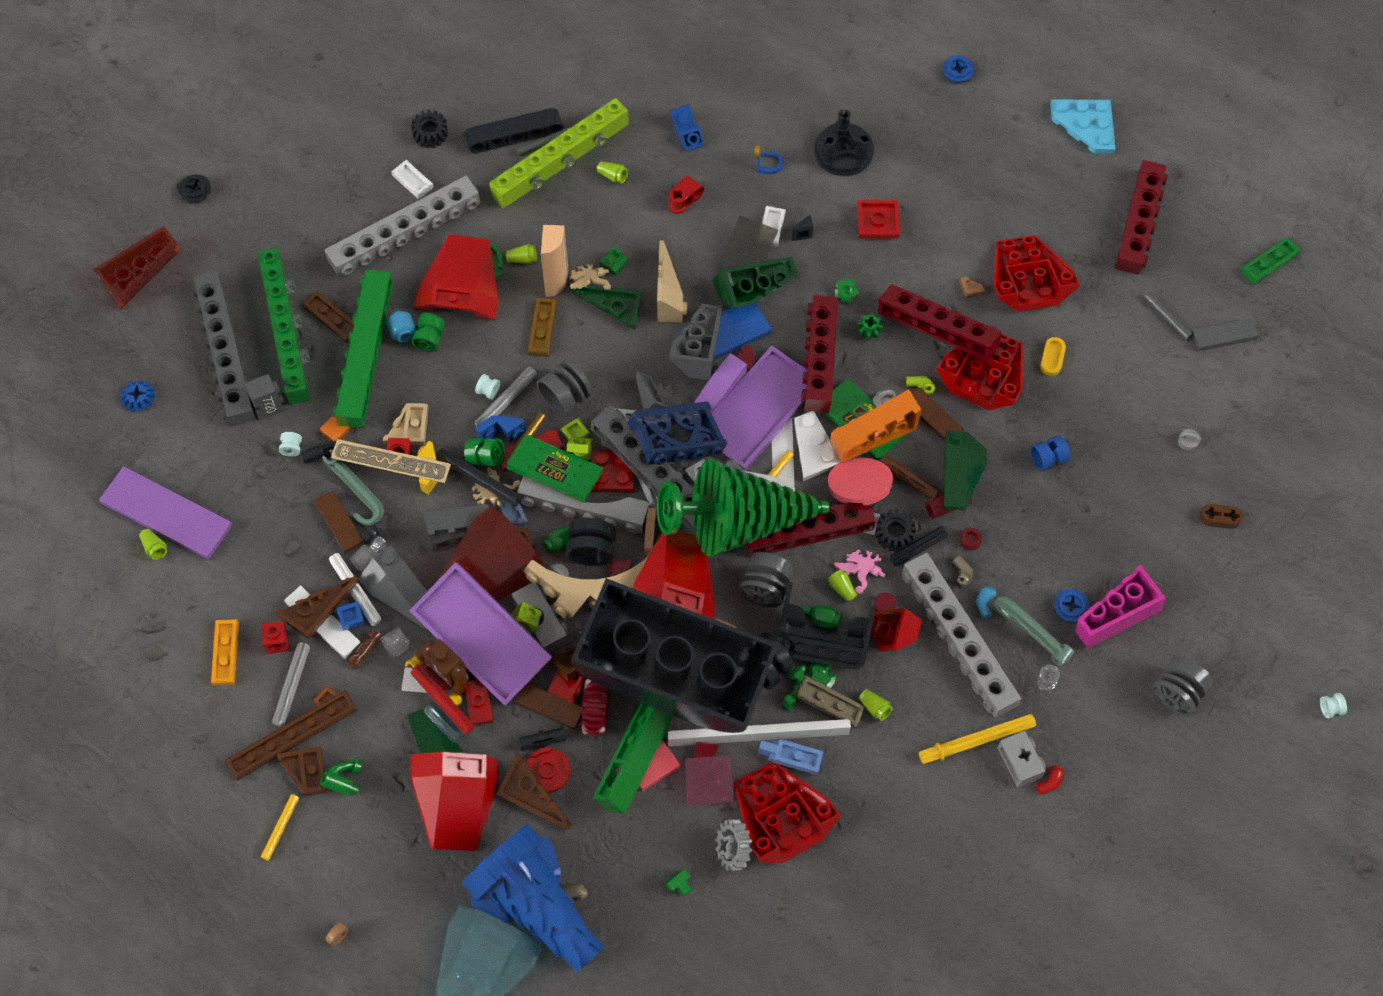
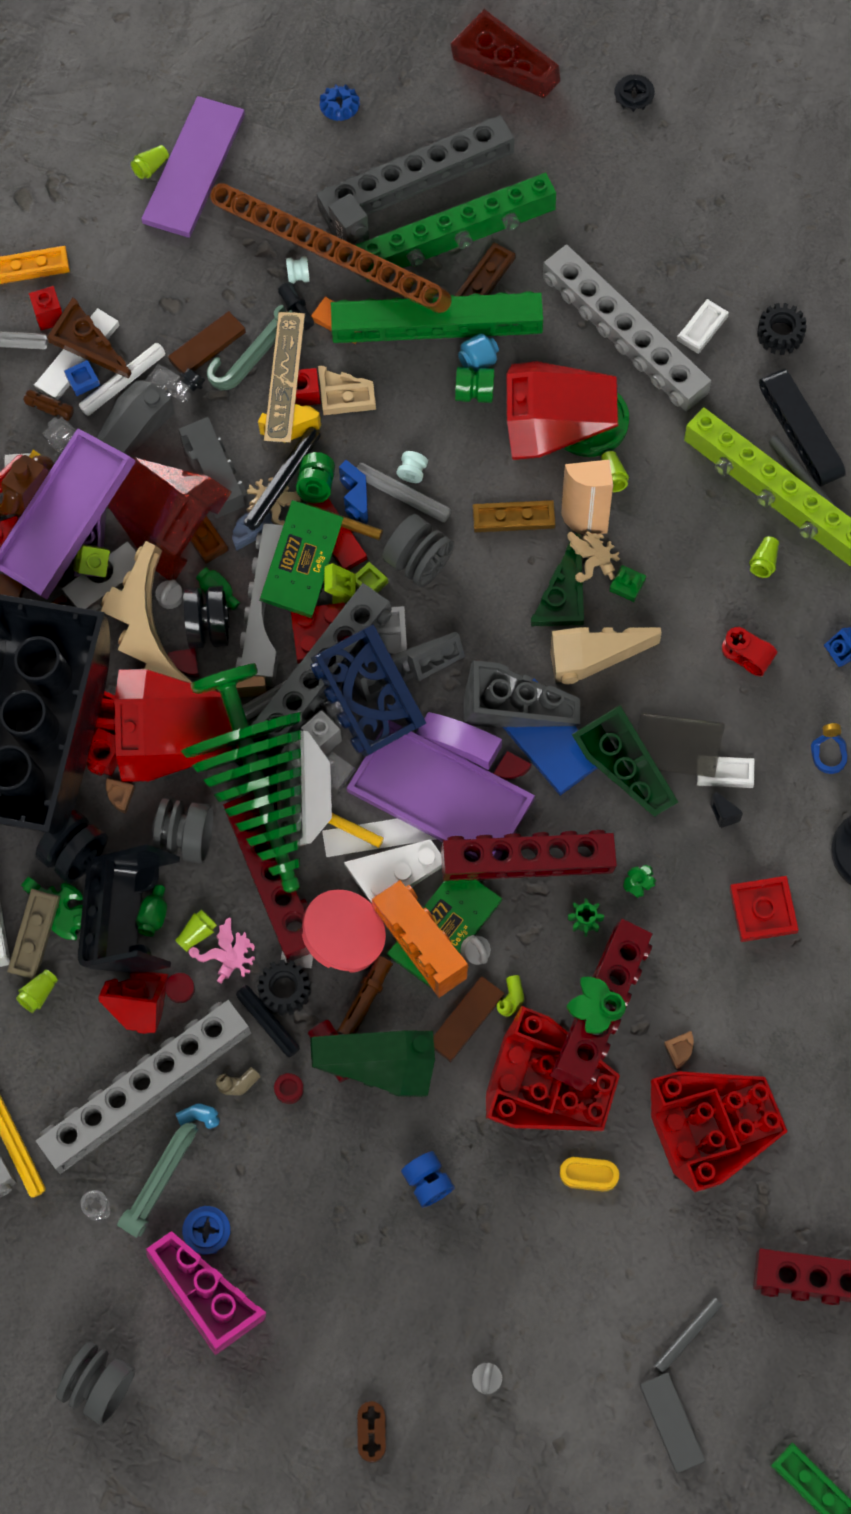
camera: 85 degrees right, 5 degrees up
(274, 415) = (338, 252): none -> dark orange beam
(946, 317) = (592, 1005): none -> green plate

